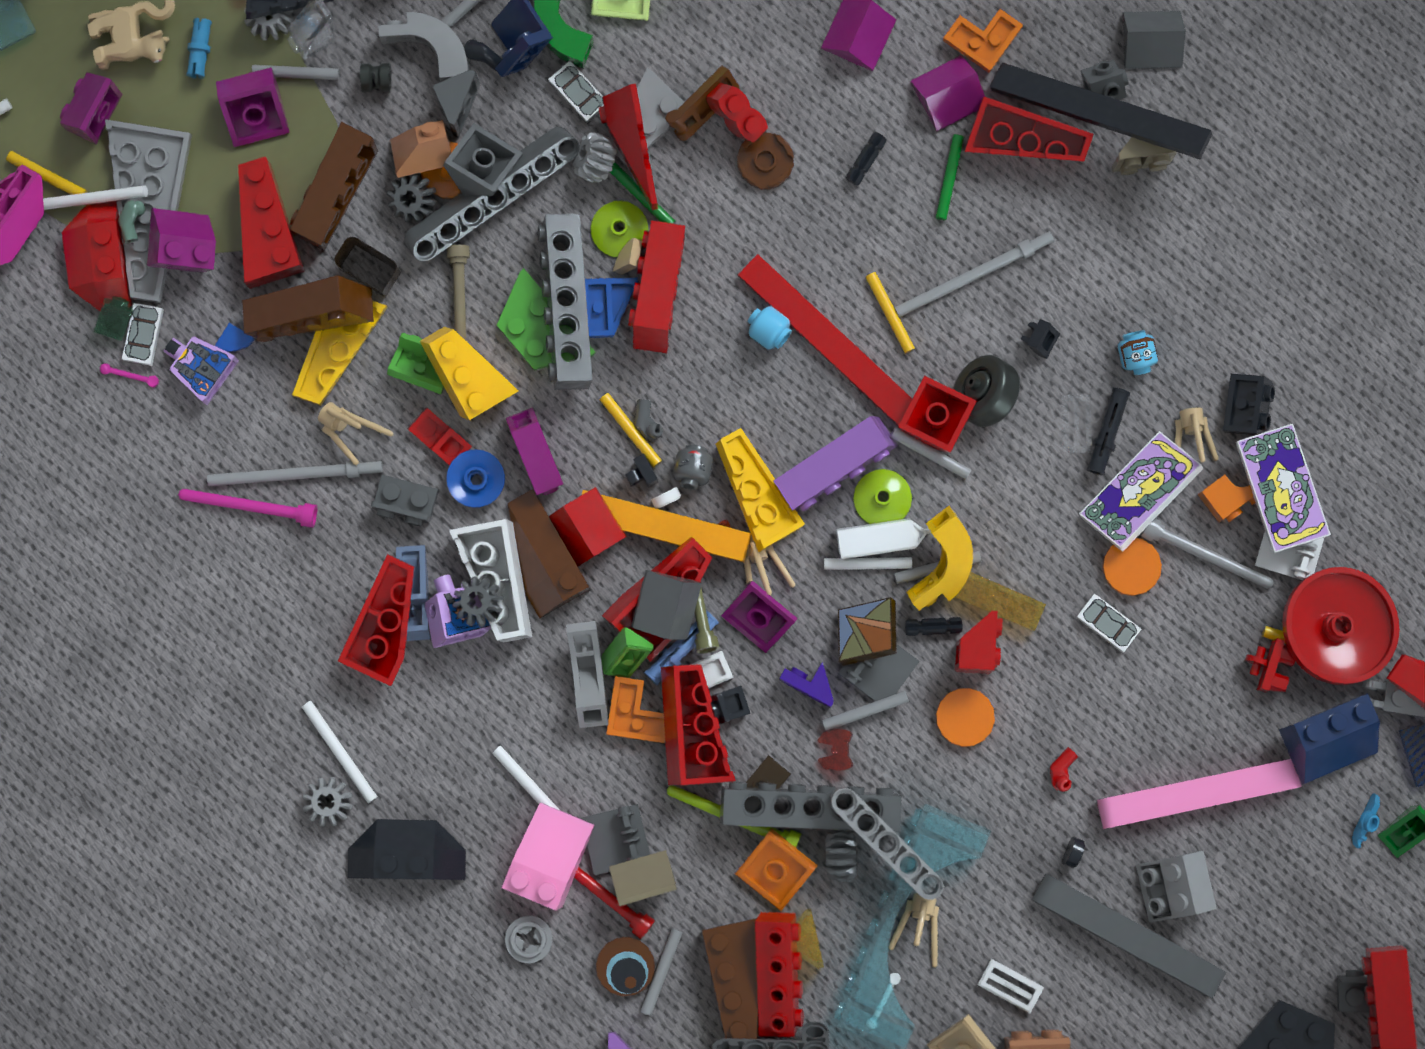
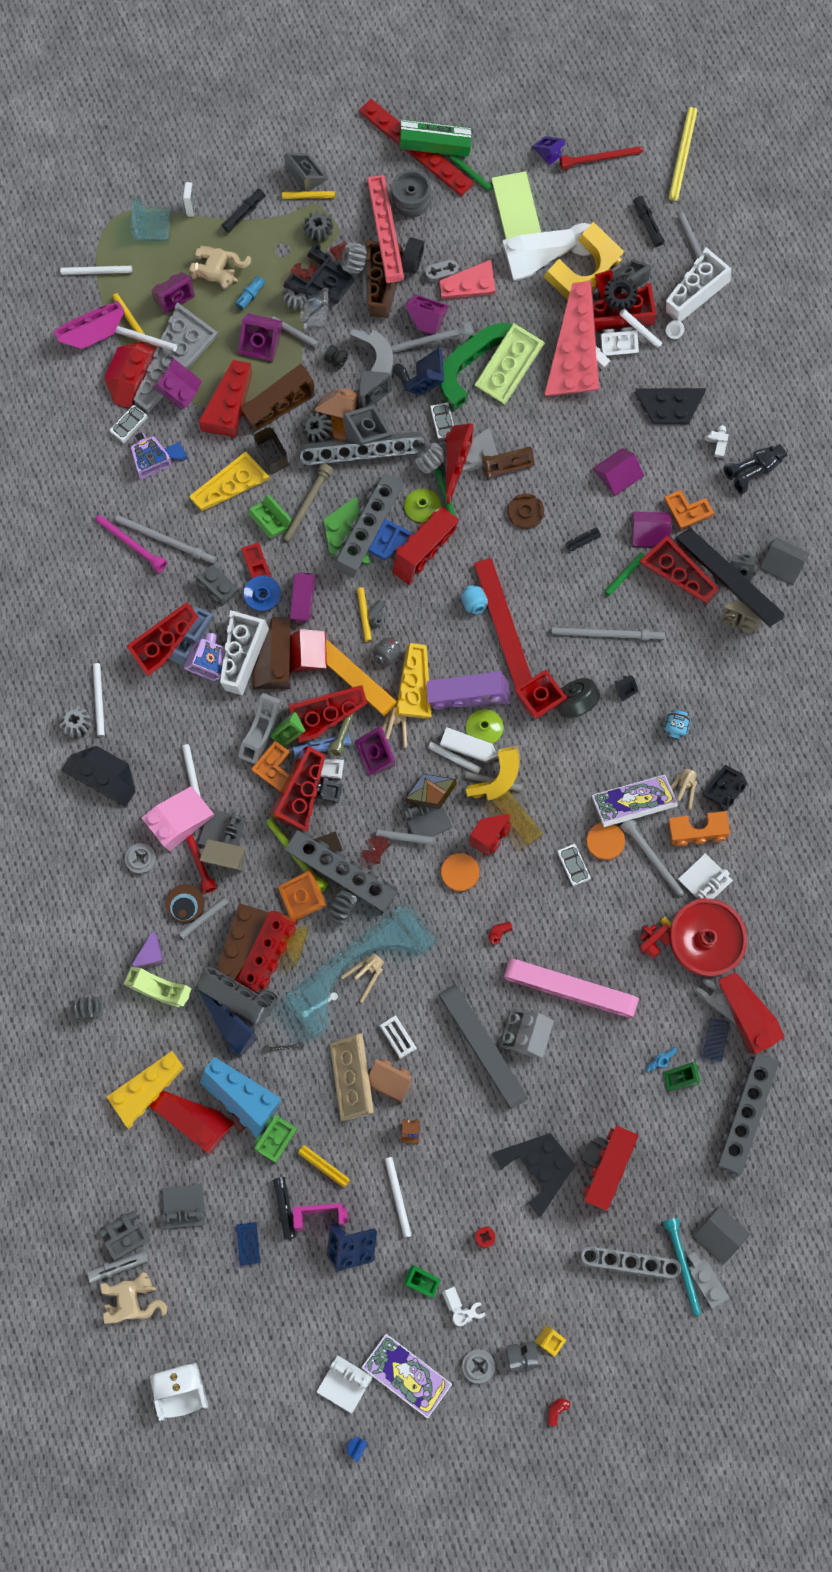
camera: 30 degrees right, 10 degrees down
(113, 318) = (118, 405): clear green bracket -> none
(127, 218) = (156, 357): sand green arm -> none
(152, 380) = (119, 451): dark pink hinge -> none
(308, 308) = (225, 453): reddish brown wedge -> none
(337, 419) = (206, 522): tan plant -> none
(465, 373) = (289, 531): yellow wedge -> none
(488, 601) = (226, 648): dark grey gear -> none
(628, 257) = (417, 521): tan tile -> none
(642, 472) = (355, 639): black tile -> none
(666, 498) = (361, 660): white tile -> none
(666, 605) = (326, 714): dark grey slope -> none
(738, 115) = (524, 479): red brick -> none
(816, 689) = (384, 808): dark purple slope -> none
(890, 312) = (548, 629): yellow bar -> none
(896, 853) = (365, 902): light grey beam -> none
(930, 453) = (525, 715): light grey bar -> none
(933, 626) = (469, 811): black axle -> none
(1073, 852) = (478, 981): black tile -> none
(1098, 463) = (628, 764): black pin -> none
(1282, 488) = (717, 840): tile -> none
(1332, 738) = (666, 998): dark blue slope -> none

